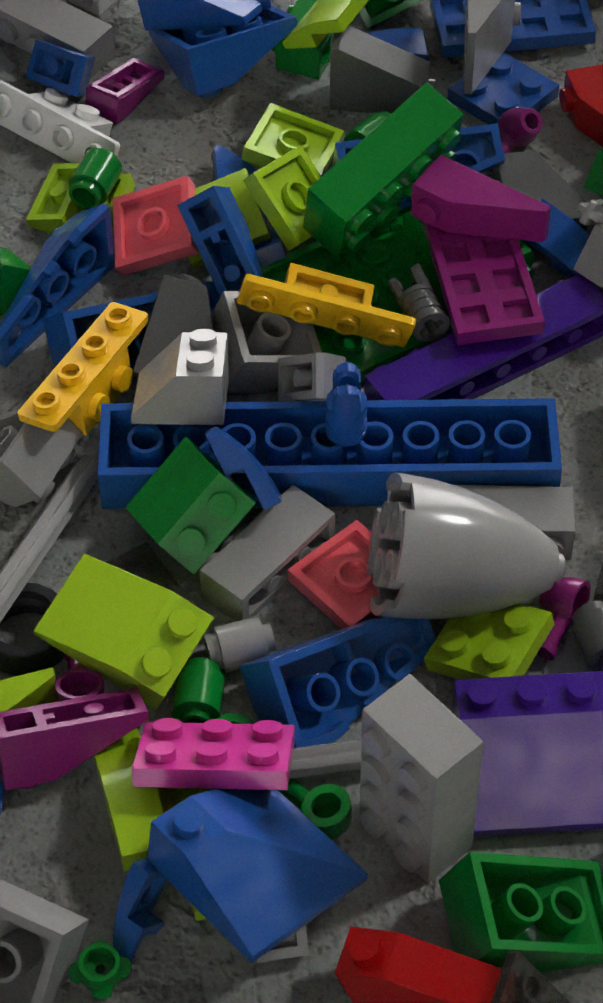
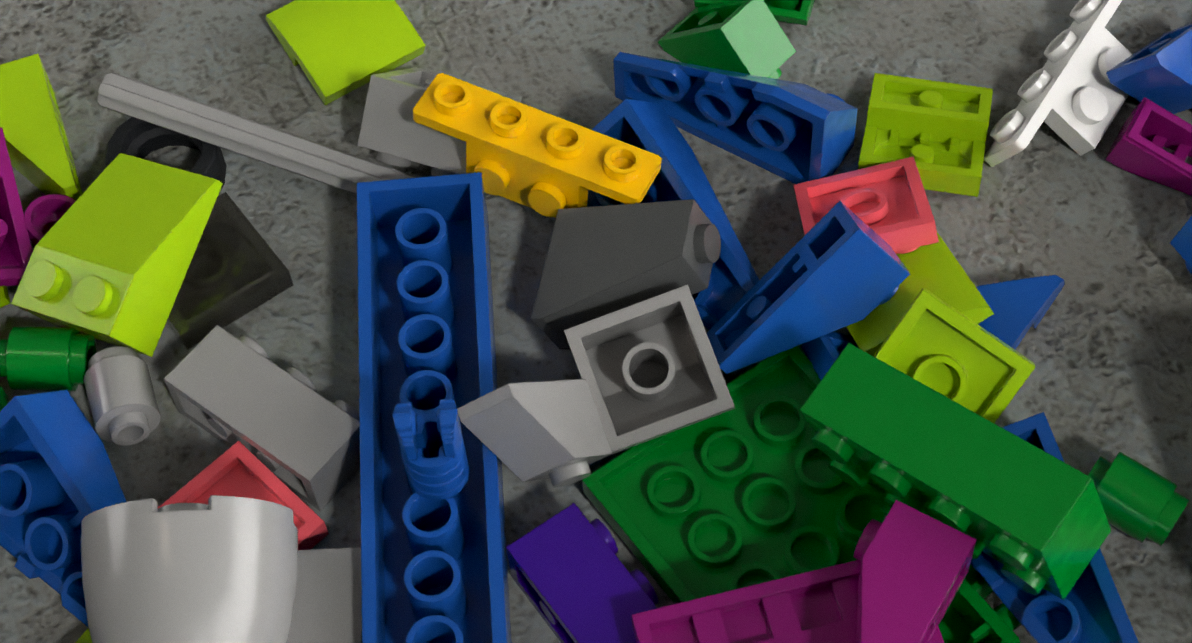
camera: 90 degrees right, 5 degrees up
(94, 178) = (947, 128): green brick -> none
(185, 382) = (496, 260): light grey slope -> none
(190, 505) = (305, 299): green slope -> none
(234, 457) = (345, 330): blue slope -> none
(283, 131) = (1087, 379): lime plate -> none
(326, 302) = (696, 429): yellow bracket -> none
(422, 304) = (731, 564): dark grey hinge -> none

